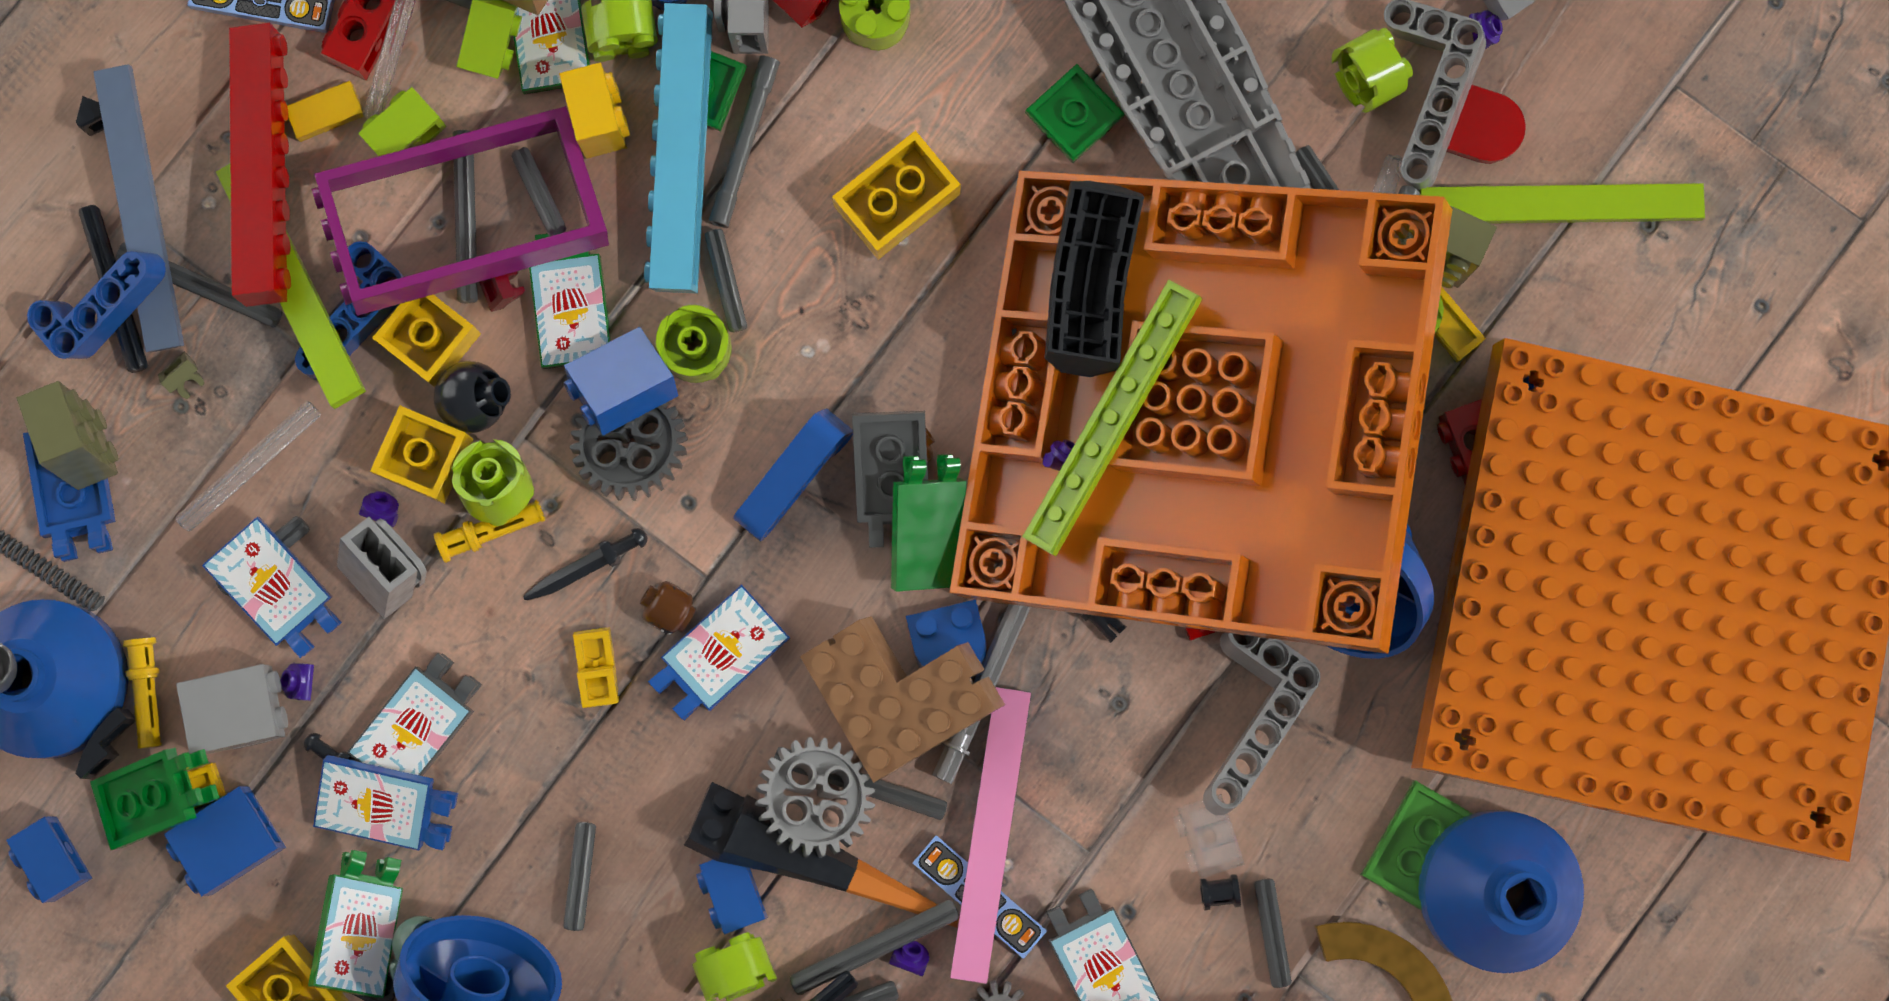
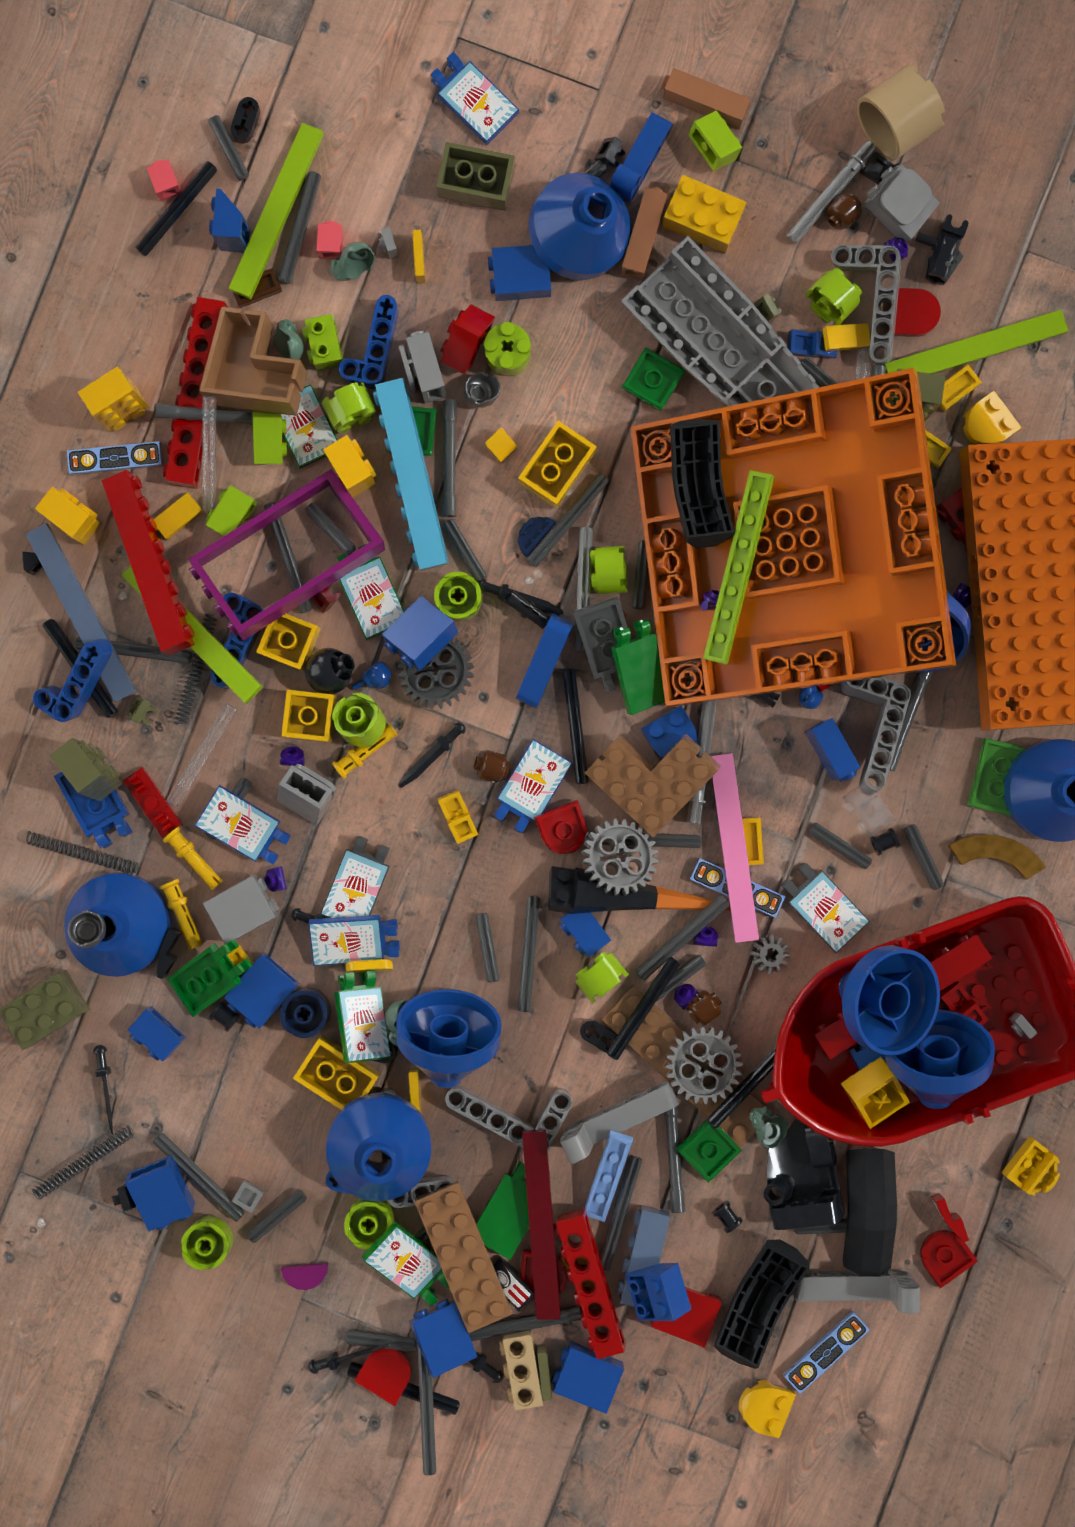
camera: 15 degrees left, 5 degrees up
(155, 515) = (152, 802): none -> red plate
(157, 863) = (224, 1016): none -> black bush
(166, 62) = (63, 511): none -> yellow piece
(180, 600) = (186, 851): none -> yellow pin
(270, 350) = (192, 677): none -> dark grey piece
(270, 912) = (299, 1024): none -> dark blue brick
(383, 848) = (381, 965): none -> yellow tile
(540, 425) = (377, 676): none -> blue piece
(638, 904) = (528, 955): none -> dark grey axle
(745, 730) = (562, 828): none -> red tile
(780, 369) = (504, 591): none -> black sword
(789, 391) = (527, 609): none -> black pin
(810, 584) = (575, 726): none -> black axle
(820, 56) = (482, 389): none -> flat silver hair
(824, 143) = (500, 445): none -> yellow slope
(833, 284) = (533, 532): none -> dark blue tile
(889, 280) = (567, 520): none -> dark grey axle
(890, 365) = (584, 577): none -> light grey axle
(927, 369) = (610, 570): none -> lime brick
(970, 398) = (641, 577): none -> dark grey axle
(1023, 832) = (753, 840): none -> yellow tile
(1152, 879) = (840, 845): none -> dark grey axle
(1170, 643) = (810, 697): none -> blue piece
(1179, 731) = (833, 750): none -> blue brick
(1270, 58) = (767, 307): none -> olive tile
(1323, 130) = (808, 344): none -> blue slope
(1344, 668) = (921, 682): none -> dark grey piece
(1374, 132) = (846, 337): none -> yellow tile
(1438, 560) = (962, 595): none -> dark purple plate
(1517, 253) = (959, 386): none -> yellow tile
(1552, 315) = (989, 421): none -> yellow slope
(1555, 51) = (945, 250): none -> black piece

